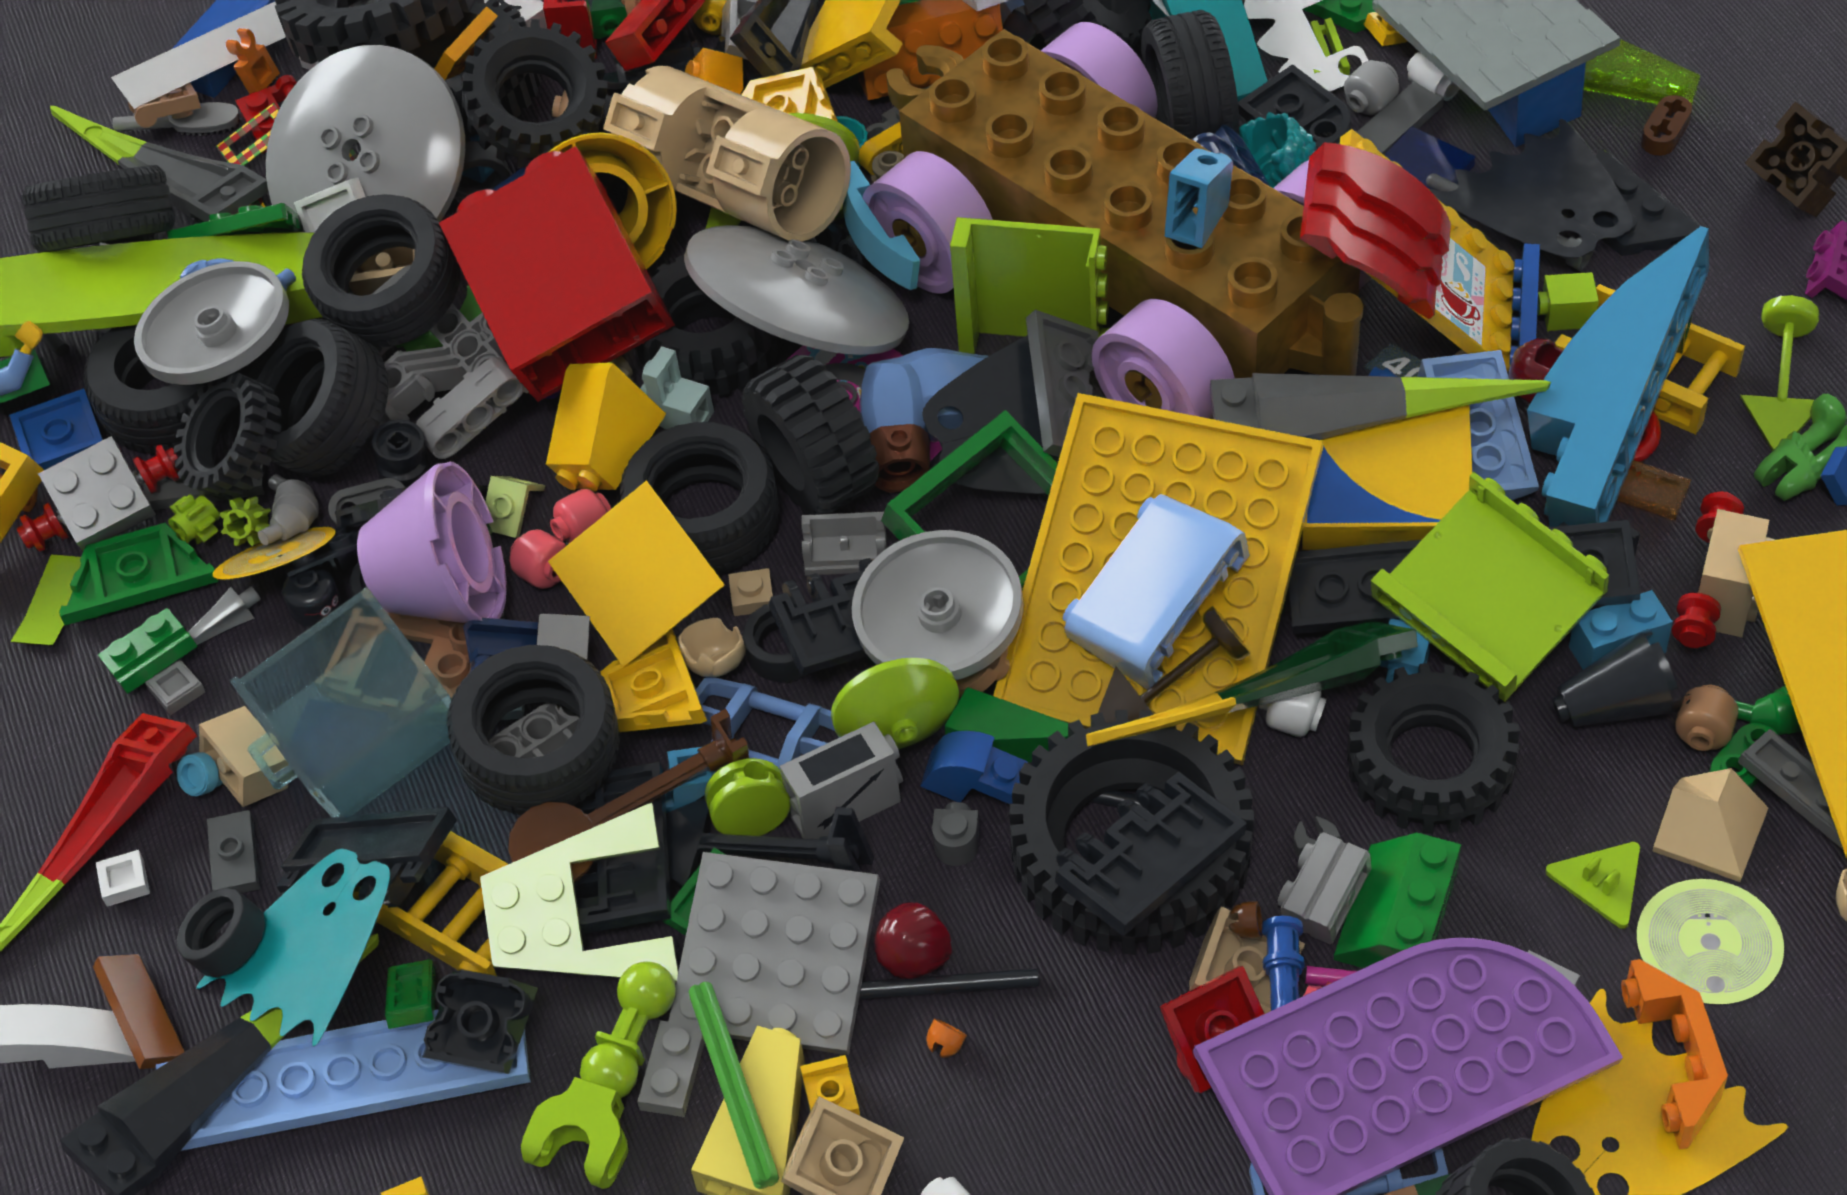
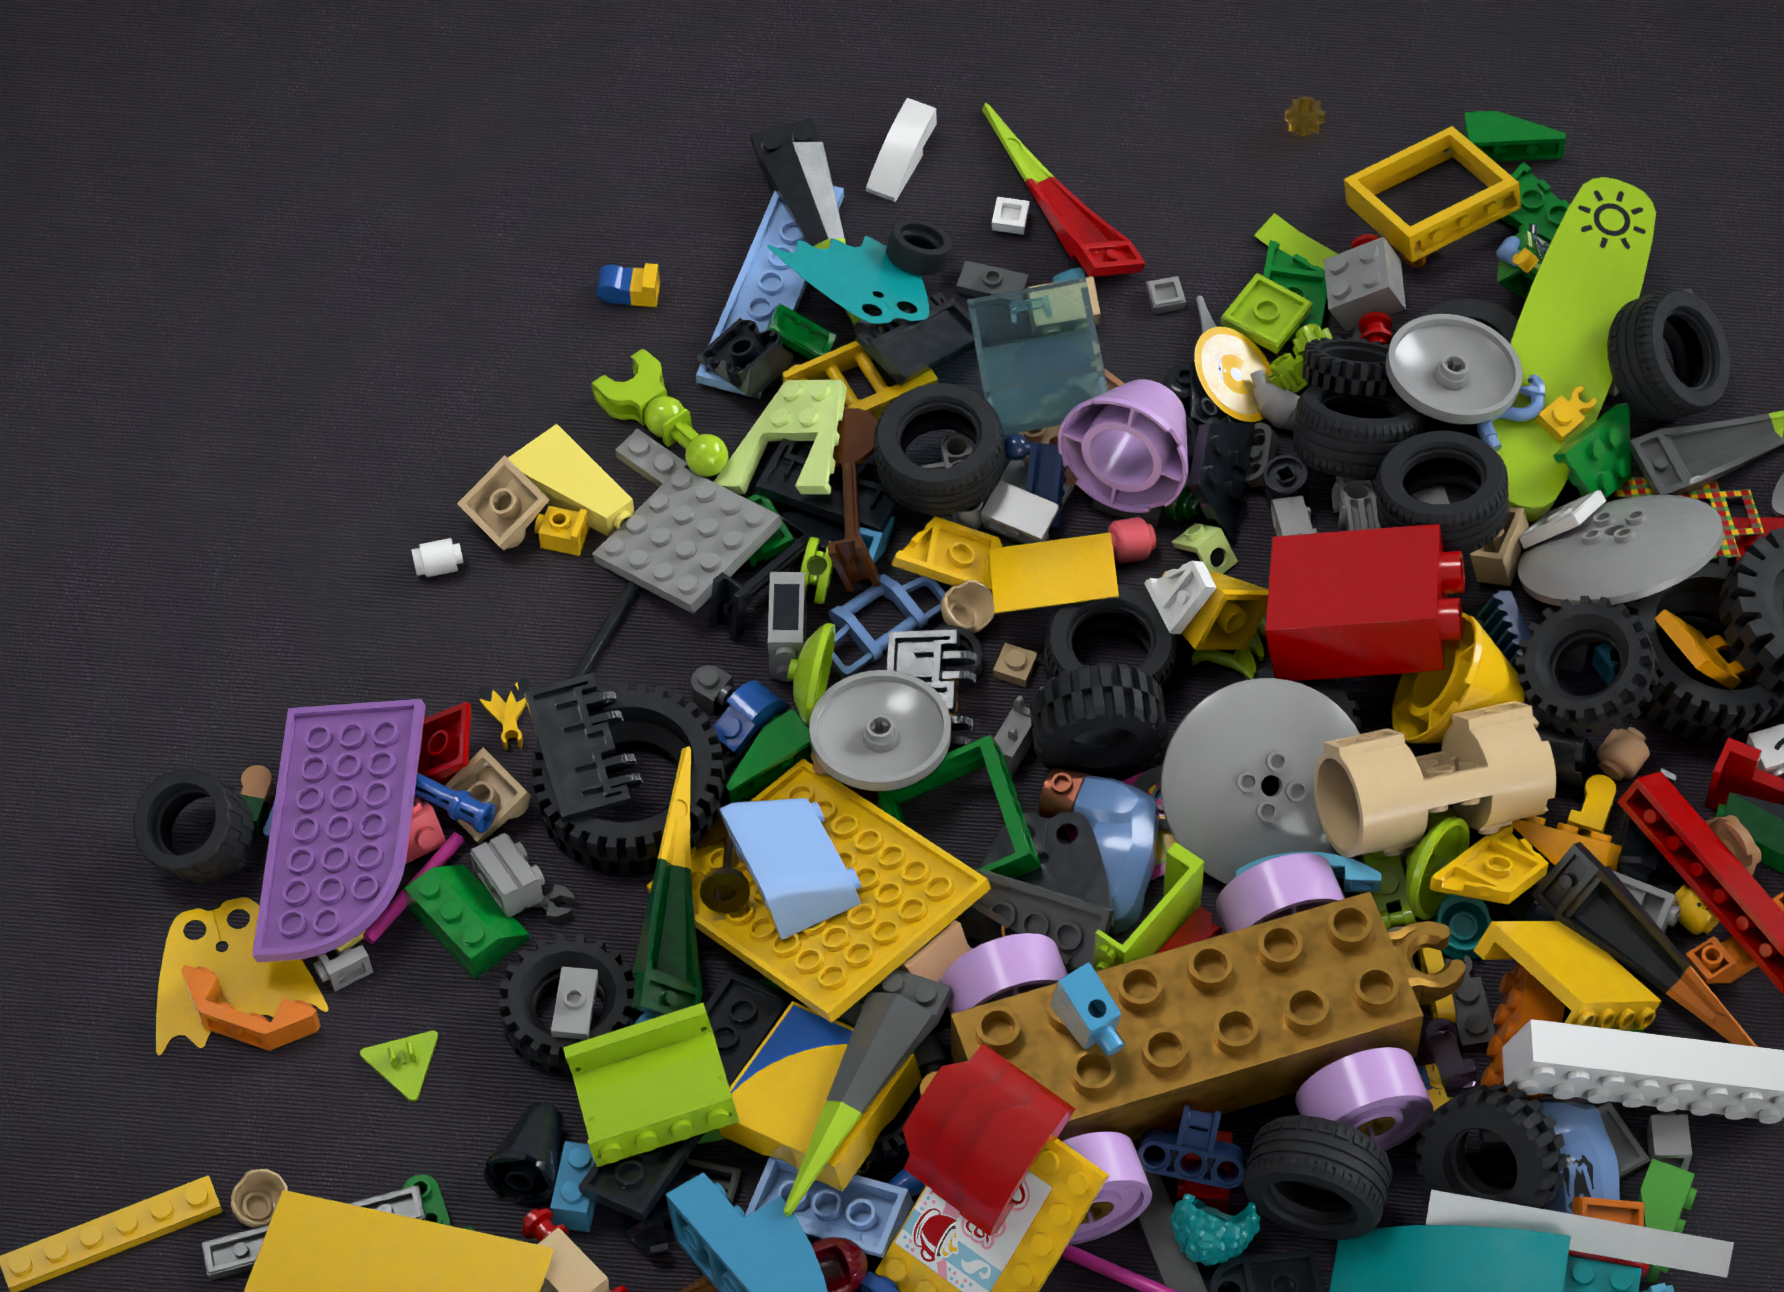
camera: 115 degrees right, 5 degrees up
(56, 428) = (1466, 280): blue plate -> none
(138, 1009) = (894, 193): dark orange tile -> none
(147, 650) = (1204, 283): green plate -> none
(171, 568) = (1266, 313): none -> lime tile
(217, 245) = (1565, 416): none -> yellow plate
(577, 513) = (1146, 566): coral head -> none
(619, 420) = (1181, 594): none -> white wing
(678, 397) = (1236, 666): light aqua brick -> none
(733, 1086) = (595, 463): bright green axle -> none
(911, 941) = (641, 615): dark red hair -> none
(945, 1035) = (569, 608): orange hinge -> none
(1112, 1024) = (507, 712): none -> yellow piece
(1249, 920) = (503, 796): reddish brown hinge -> none
(1444, 710) = (574, 1003): none -> light grey plate
(1707, 718) = (468, 1195): medium nougat head -> none
(1712, 823) = (393, 1151): tan slope -> none
(1712, 939) = (313, 1099): yellowish green piece -> none

